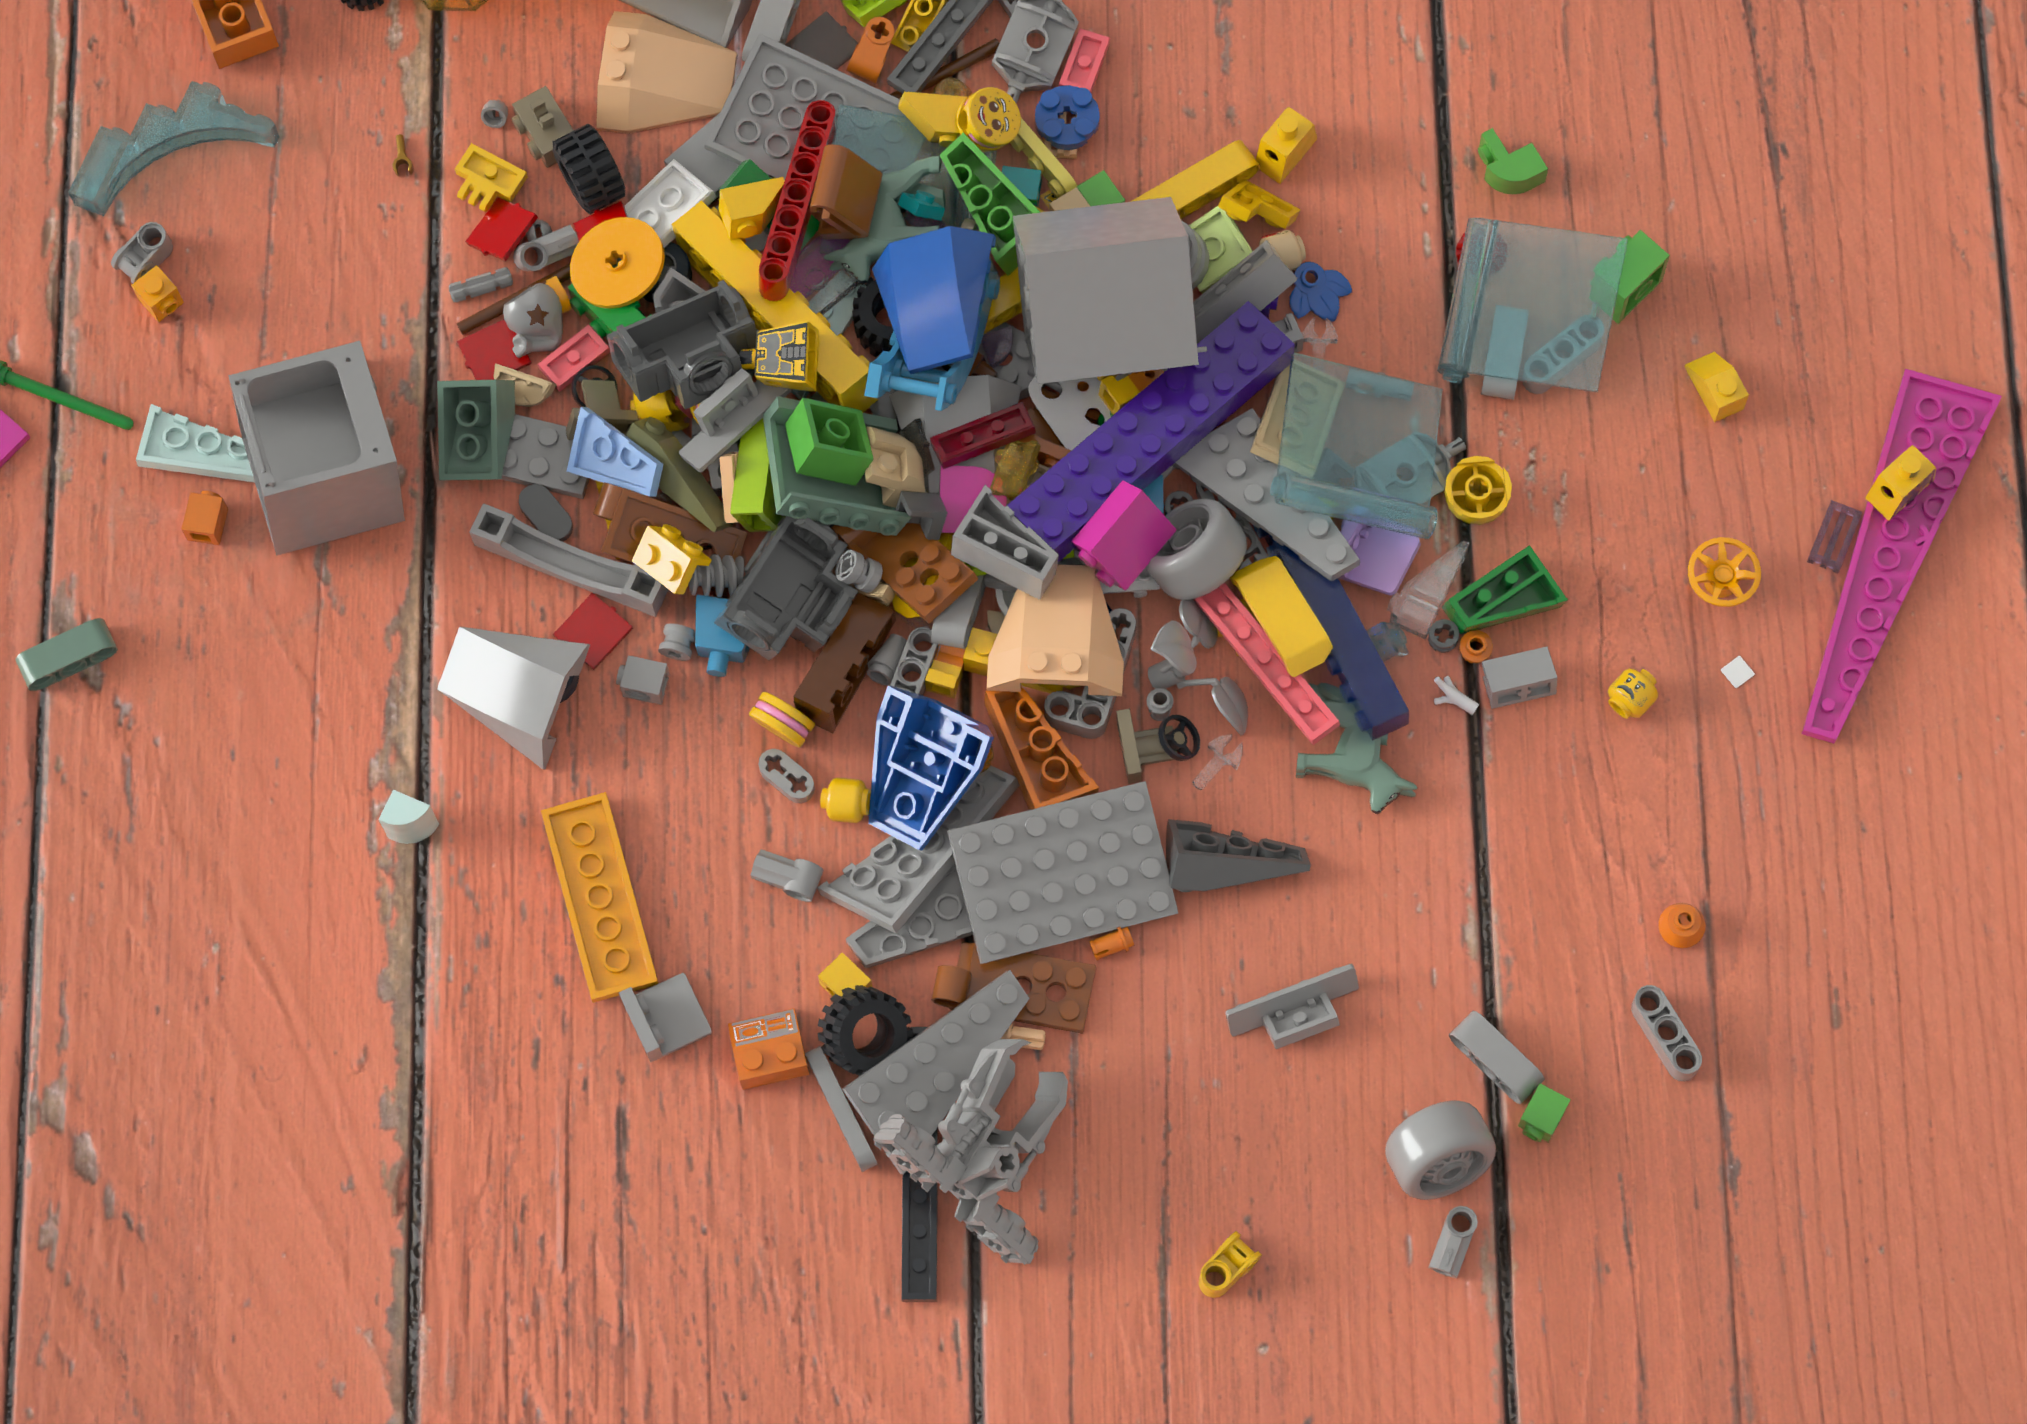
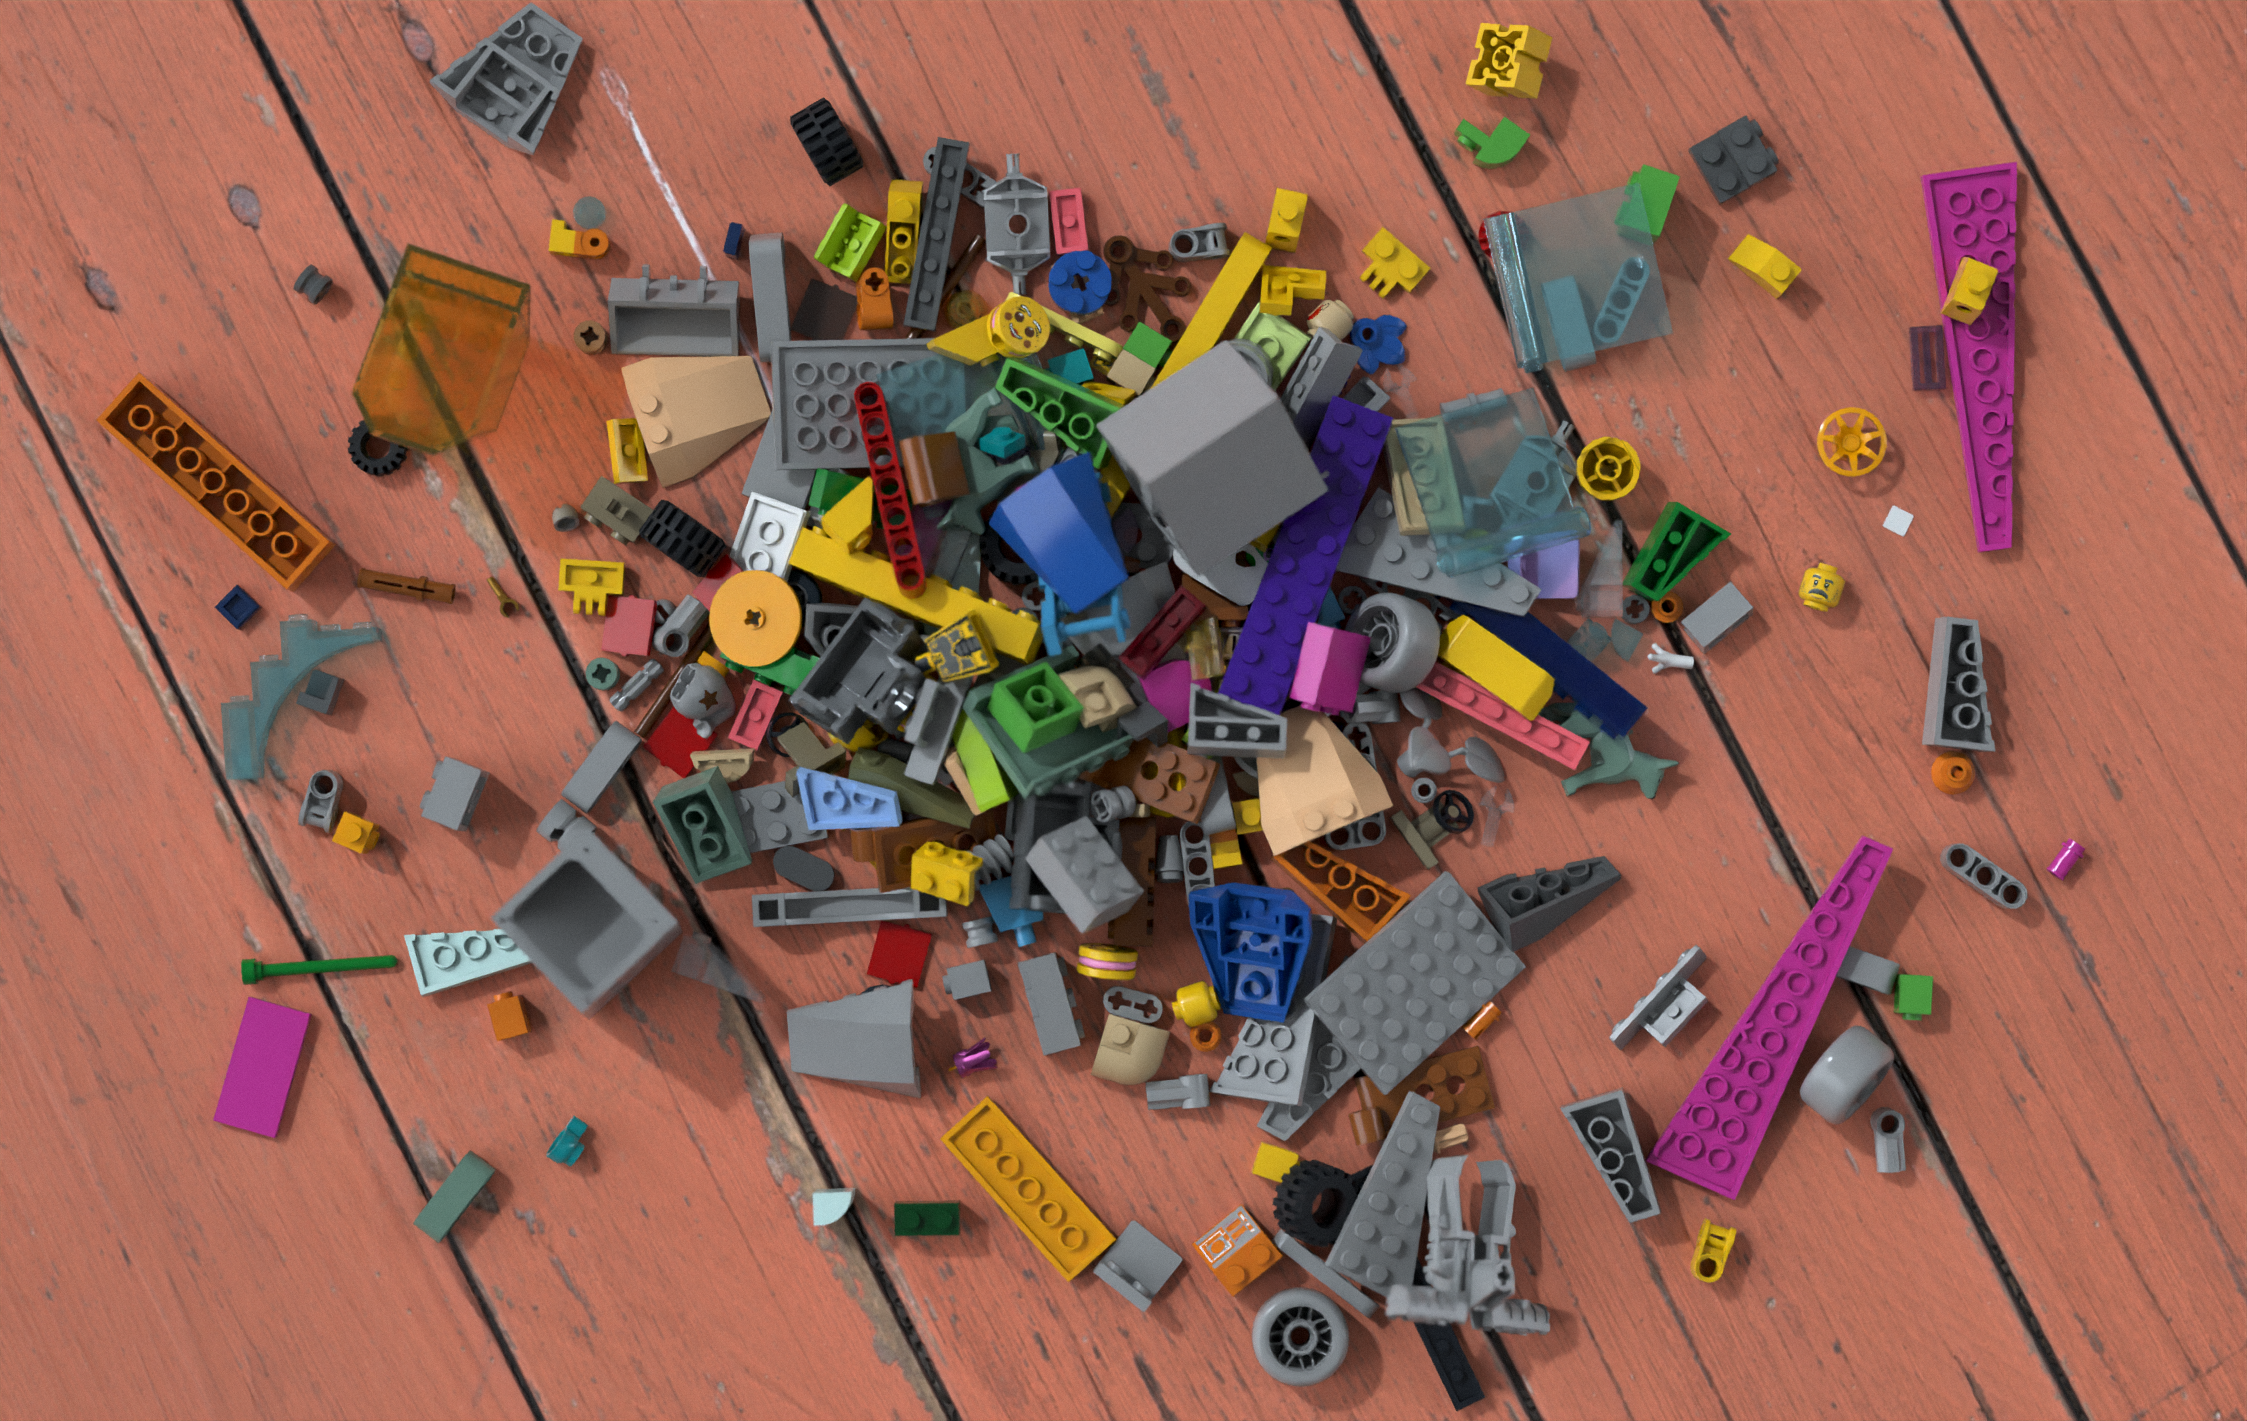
camera: 30 degrees left, 15 degrees up
(163, 60) = (238, 607): none -> dark blue tile
(194, 655) = (566, 1146): none -> teal piece
(195, 165) = (321, 692): none -> dark grey panel
(264, 296) = (454, 793): none -> light grey brick
(349, 125) = (443, 592): none -> dark orange pin
(409, 339) = (601, 767): none -> light grey beam
(409, 553) = (710, 965): none -> clear slope
(459, 266) = (607, 675): none -> sand green wheel
(490, 877) = (927, 1218): none -> dark green brick
(580, 80) = (627, 451): none -> yellow plate
(603, 750) = (973, 1059): none -> flat silver piece
(710, 732) = (1051, 1003): none -> light grey wedge
(760, 812) = (1129, 1051): none -> tan brick
(778, 1126) = (1305, 1362): none -> light grey wheel
(796, 610) = (1084, 874): none -> light grey brick
(840, 826) = (1212, 1043): none -> orange plate
(1125, 145) = (1142, 284): none -> reddish brown plant
(1150, 606) = (1374, 707): none -> light grey piece
(1180, 1118) = (1612, 1142): none -> light grey wedge
(1196, 134) = (1202, 243): none -> light grey piece
(1326, 1125) = (1739, 1091): none -> dark pink wing
(1364, 231) = (1392, 264): none -> yellow hinge
(1421, 658) = (1624, 639): none -> clear light blue tile
(1559, 96) = (1509, 60): none -> yellow brick
(1718, 851) = (1956, 689): none -> light grey wedge
(1732, 279) = (1734, 159): none -> dark grey plate
(1756, 1056) = (2066, 859): none -> dark pink pin

